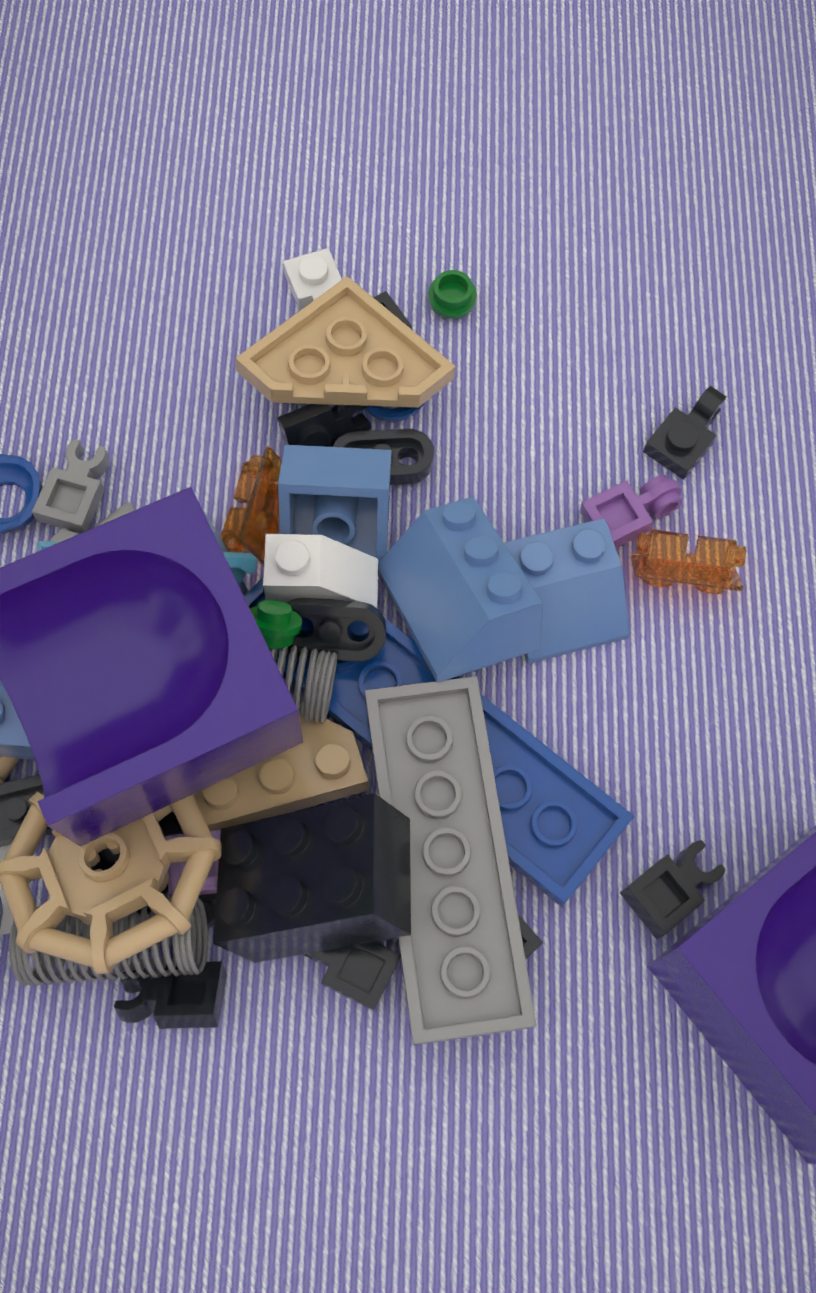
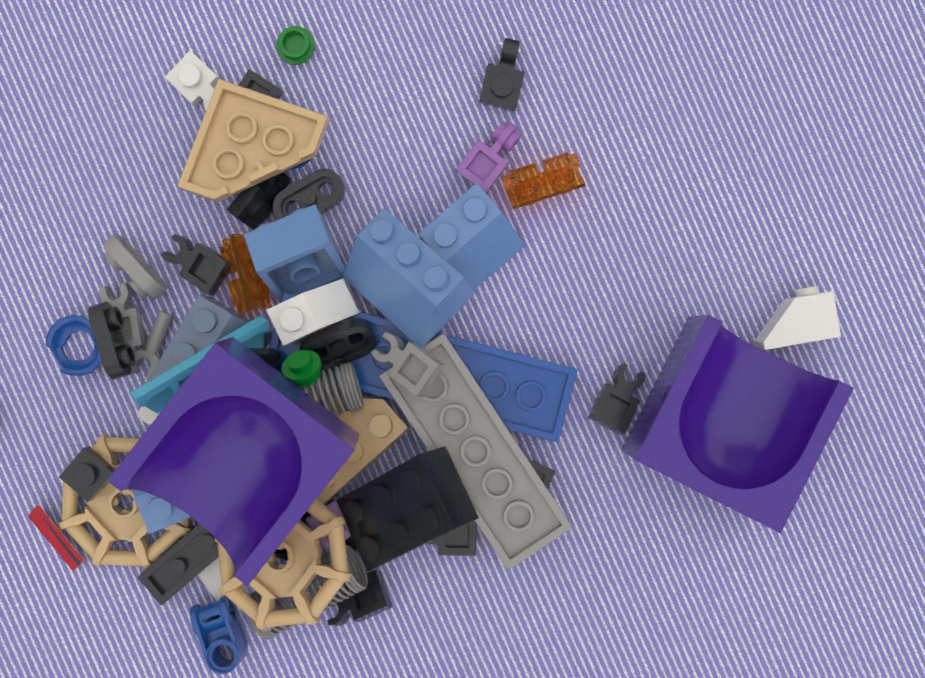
camera: 25 degrees left, 20 degrees up
(45, 507) = (106, 327): none -> black plate
(130, 456) = (124, 256): none -> light grey plate
(208, 470) = (201, 264): none -> black plate
(415, 688) = (411, 365): none -> light grey plate

